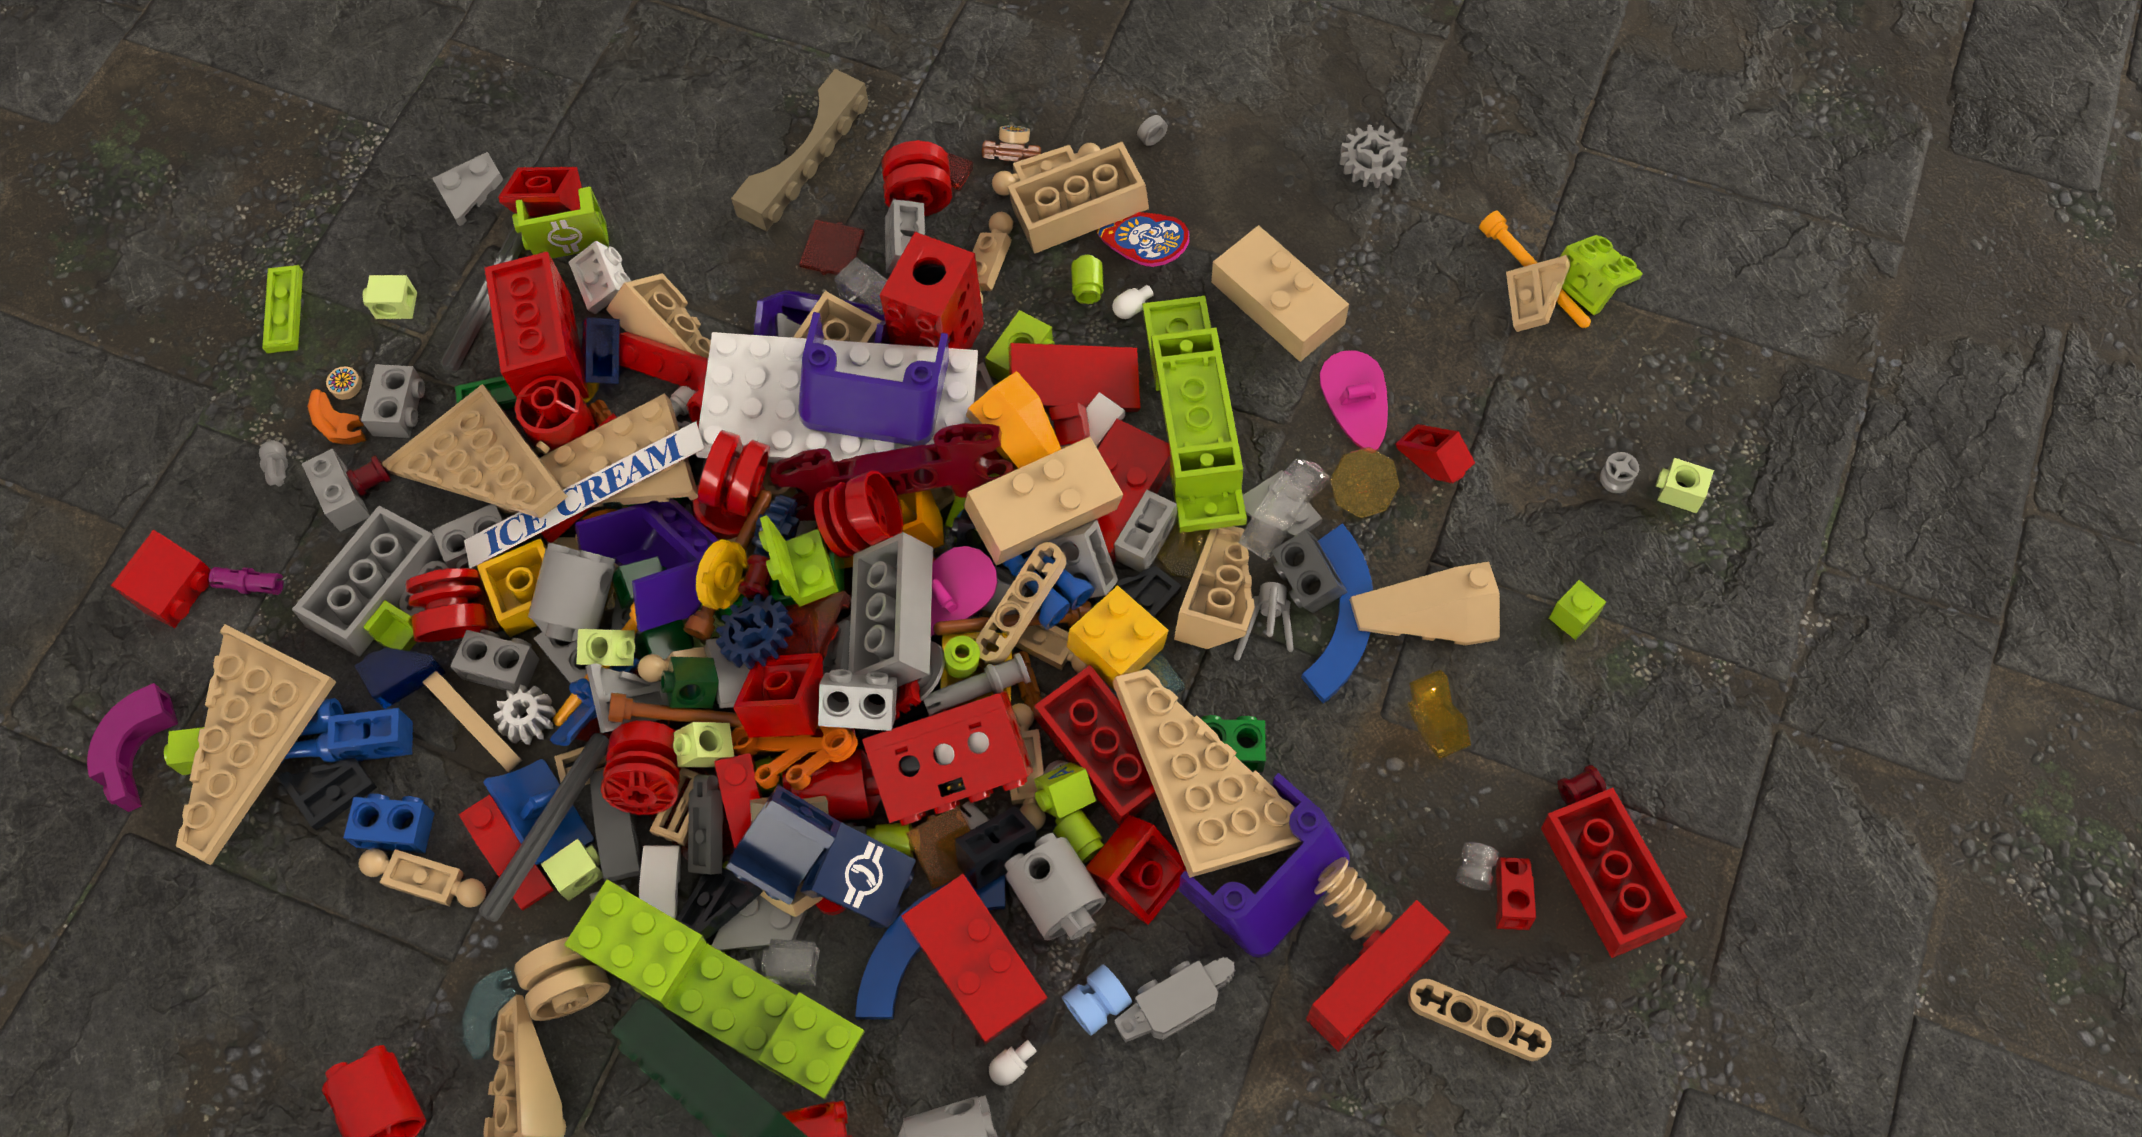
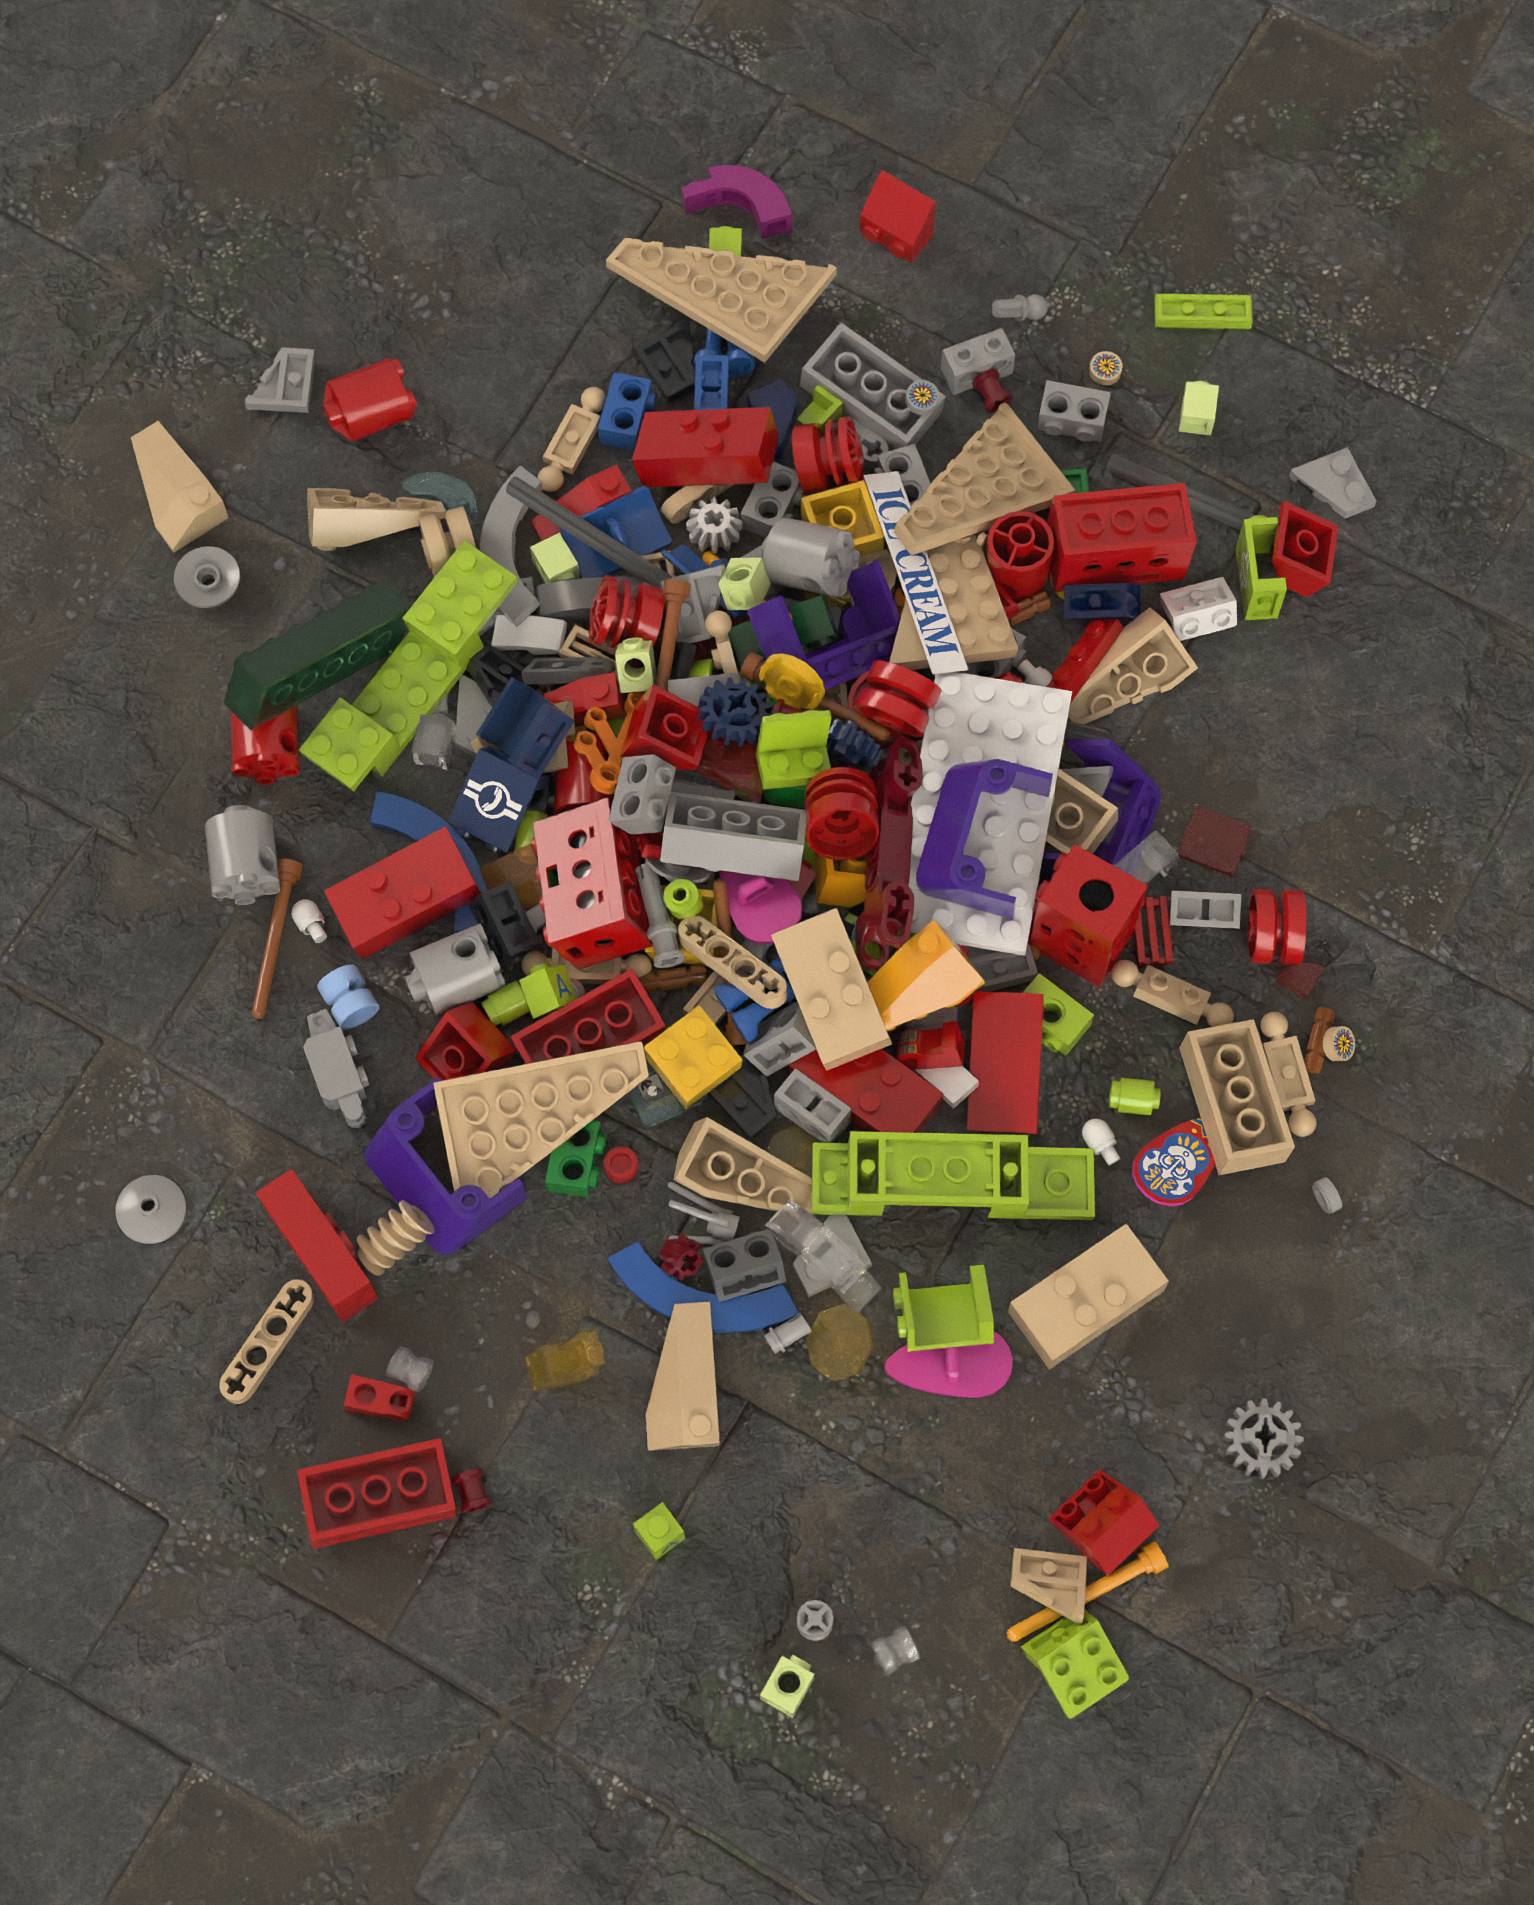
camera: 95 degrees right, 5 degrees up
(246, 580) = (895, 288): magenta pin -> none
(333, 425) = (1061, 357): orange piece -> none
(381, 522) = (922, 397): none -> tile
(438, 723) = (706, 447): none -> red brick
(523, 935) = (499, 544): none -> light grey tile
(690, 682) = (692, 652): dark green brick -> none
(768, 193) = (1397, 858): dark tan arch -> none
(960, 1092) = (289, 873): none -> dark orange piece
(1226, 703) = (621, 1164): none -> red tile
(1312, 629) = (680, 1257): none -> dark red gear
(1317, 397) = (945, 1314): none -> lime panel
(1363, 530) = (787, 1333): none -> light grey pin
(1437, 452) = (866, 1426): red slope -> none
(1472, 262) = (1104, 1521): none -> red slope
(1628, 404) = (903, 1647): none -> clear wheel

